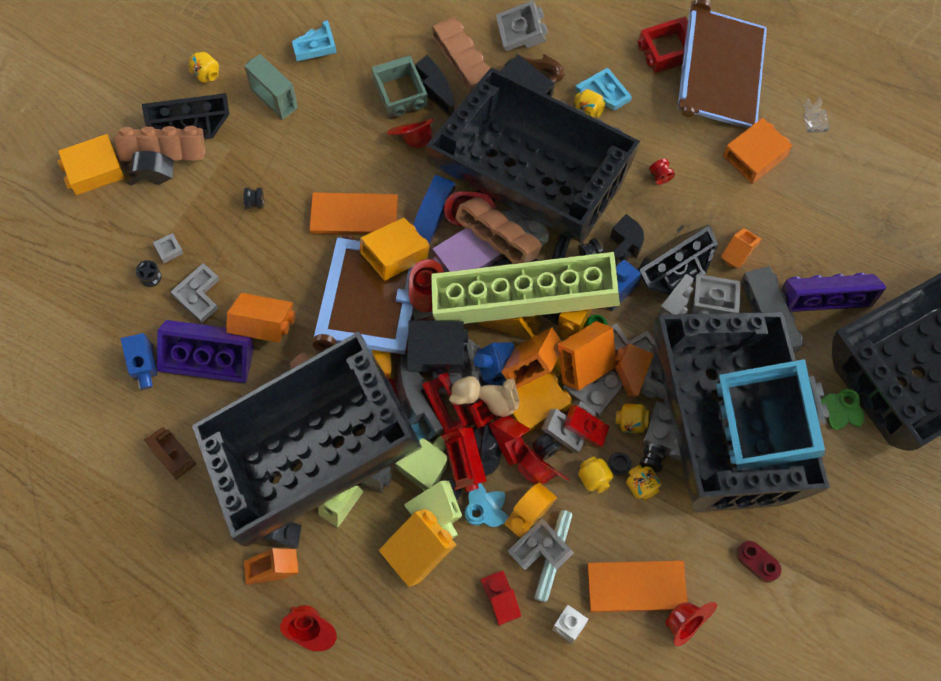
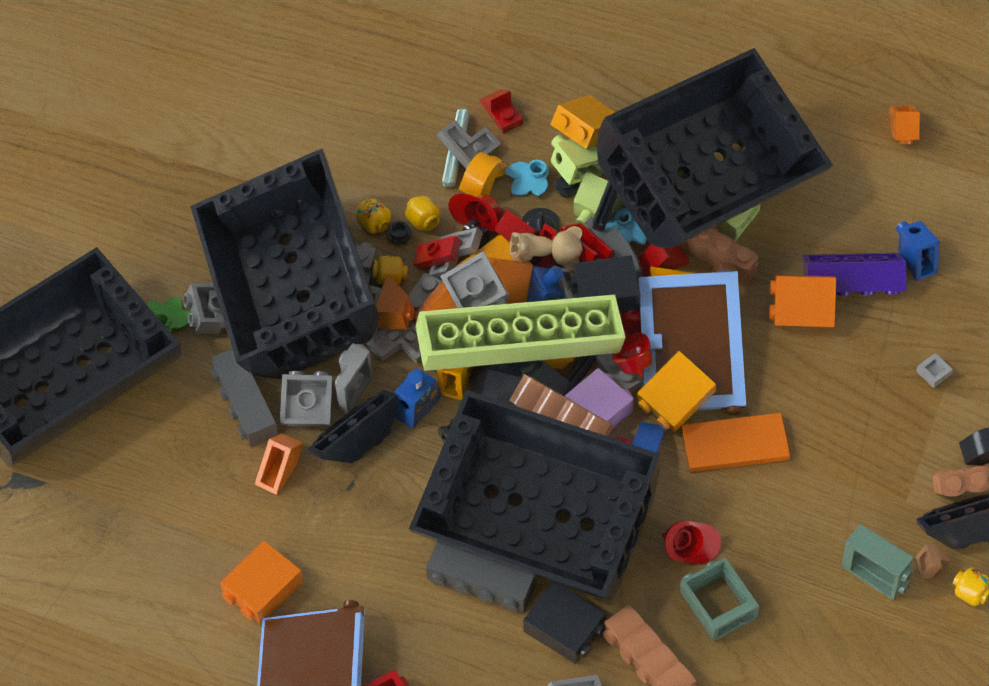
camera: 175 degrees right, 10 degrees down
(101, 507) = (905, 123): none -> orange slope
(146, 268) = (949, 335): black wheel -> none
(170, 452) = (856, 176): reddish brown hinge -> none
(192, 292) = (889, 328): light grey plate -> none
(231, 88) = (931, 560): none -> medium nougat tile
(253, 198) = (856, 436): black wheel -> none
(308, 628) = (679, 61): red piece -> none
(314, 43) = (843, 647): medium azure wing -> none
(405, 465) = (604, 208): none -> black axle
(435, 84) = (674, 608): black slope -> none
(464, 459) = (556, 201): red window -> none
(549, 65) = (539, 661): reddish brown piece -> none
(560, 330) = (475, 283): none -> light grey plate
(570, 624) = (433, 91): white brick -> none
(589, 102) = (476, 611): yellow head -> none
(608, 86) = (457, 637): medium azure wing -> none
(629, 237) = (409, 452): black brick -> none
(636, 586) = (372, 135): orange tile -> none
(653, 458) = (366, 233): black wheel -> none
(661, 171) = (377, 538): red wheel -> none
(686, 620) = (322, 107): red piece -> none
(758, 562) = (252, 169): dark red plate -> none
(764, 374) = (242, 221): medium azure window -> none
(815, 119) = (188, 638): clear plate -> none
(832, 292) = (176, 420): dark purple slope -> none

